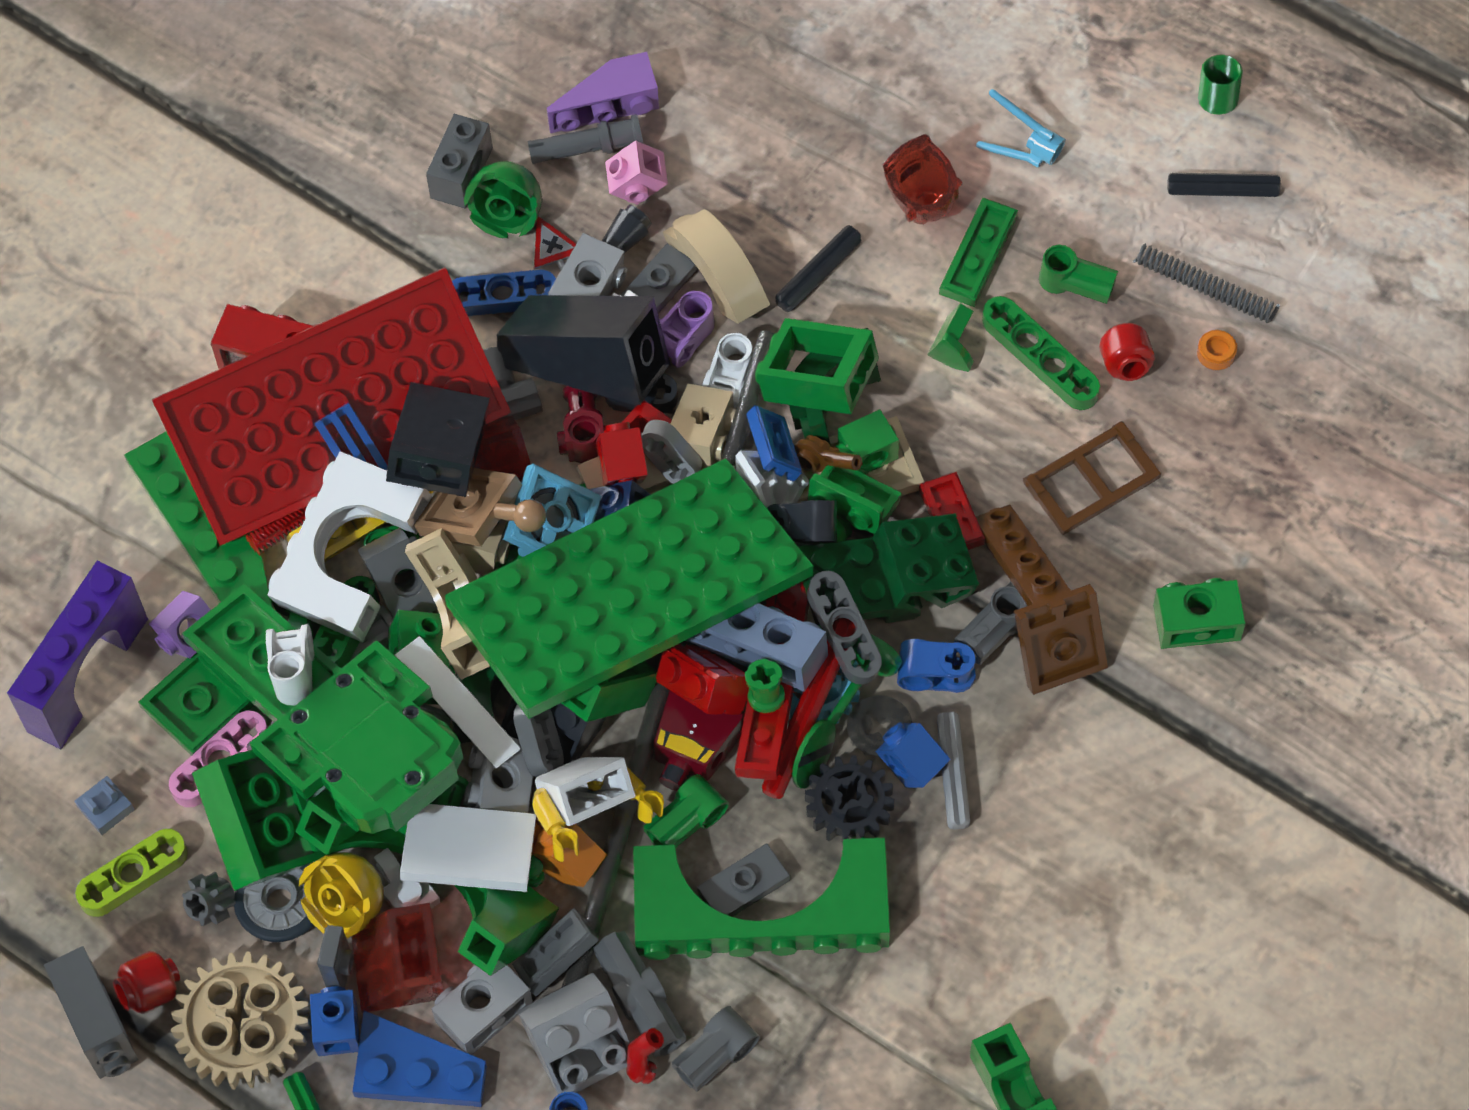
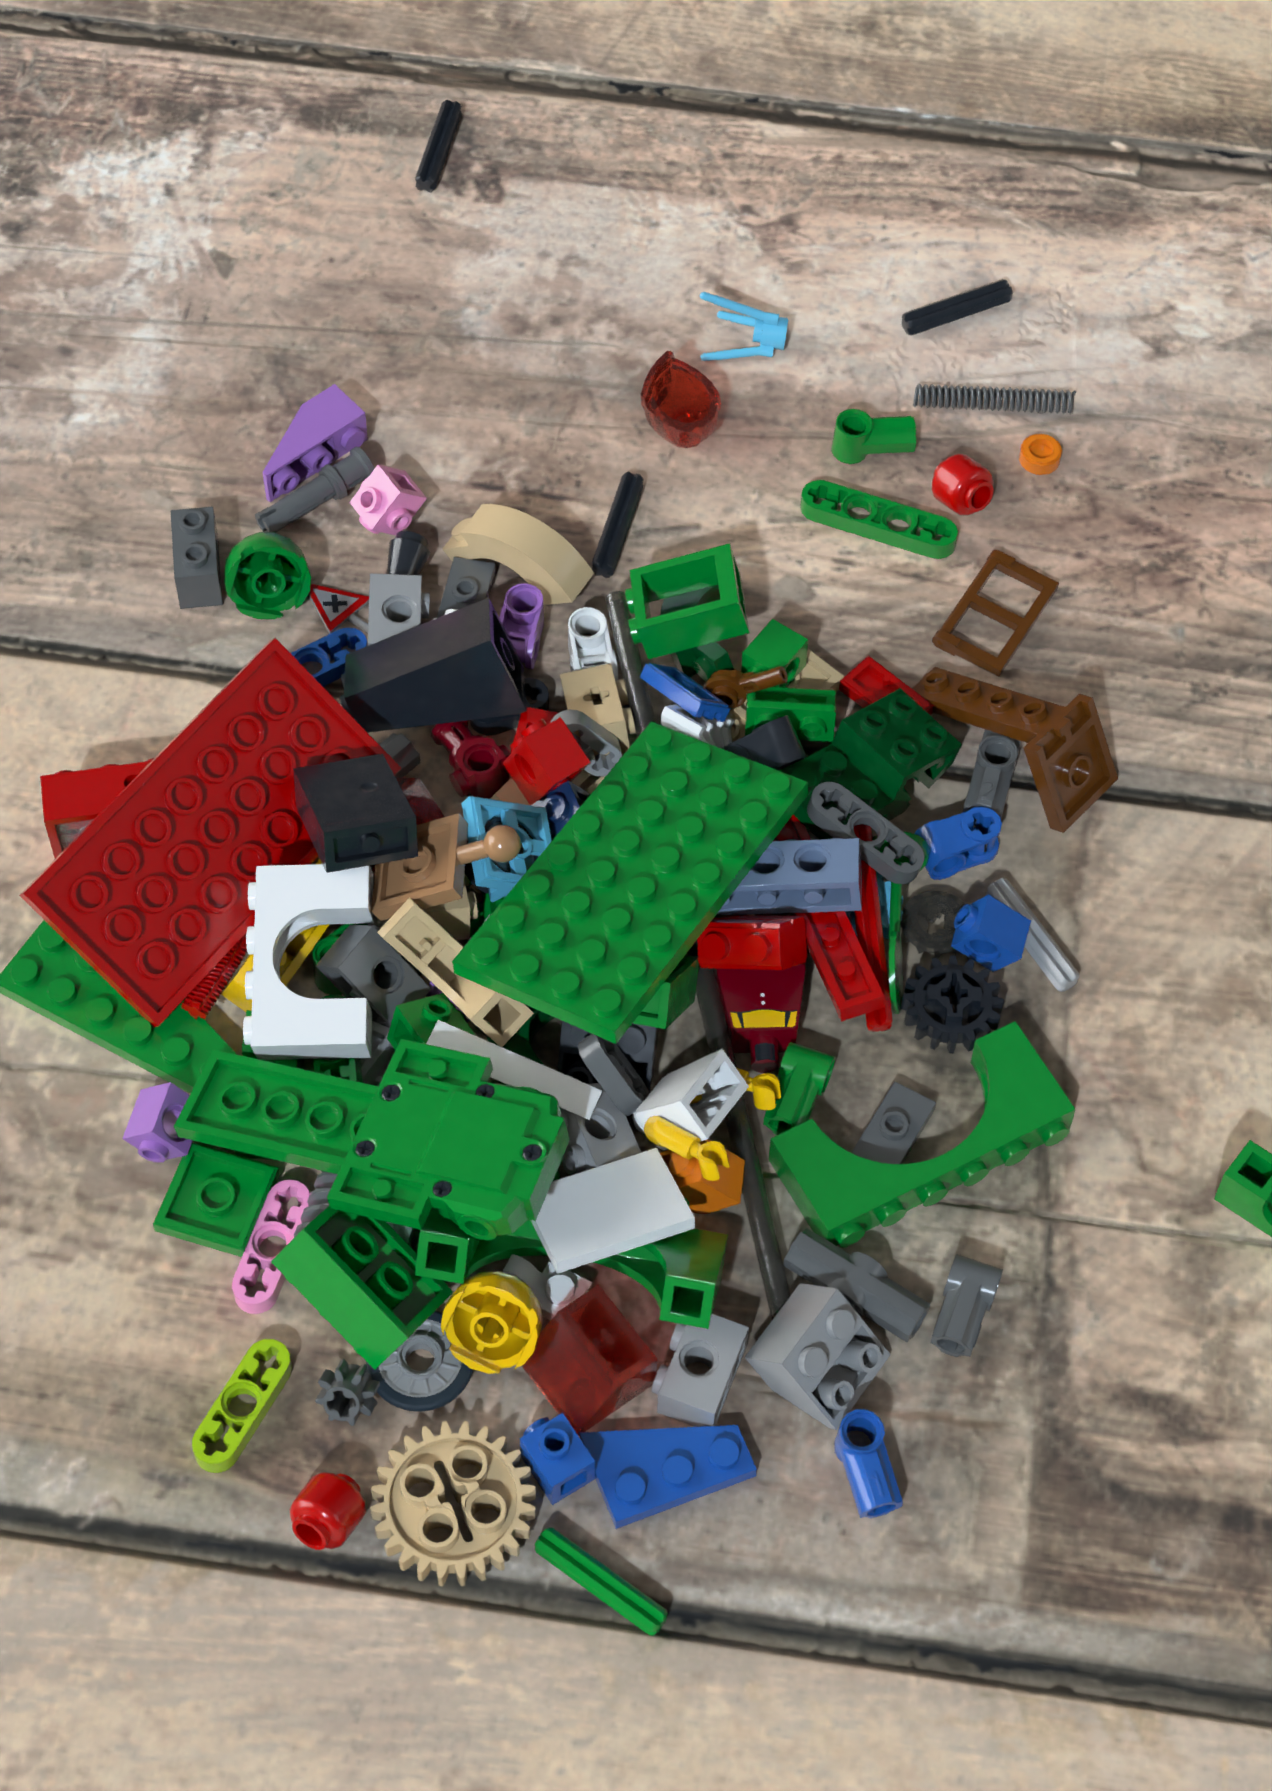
camera: 30 degrees left, 5 degrees down
(91, 1013) = (290, 1568): dark grey window -> none
(101, 608) = (69, 1153): dark purple arch -> none
(104, 805) = (171, 1349): sand blue tile -> none
(290, 663) = (321, 1101): white piece -> none
(334, 418) = (255, 840): blue tile -> none
(335, 957) = (527, 1387): dark grey plate -> none
(555, 952) = (750, 1277): dark grey plate -> none
(638, 1052) = (894, 1343): red arm -> none
(764, 686) = (825, 924): green bush -> none
(946, 345) = (786, 541): green tile -> none
(978, 252) = (763, 452): green tile -> none
(1183, 628) = (1175, 692): green brick -> none
(1220, 84) = (903, 219): green piece -> none

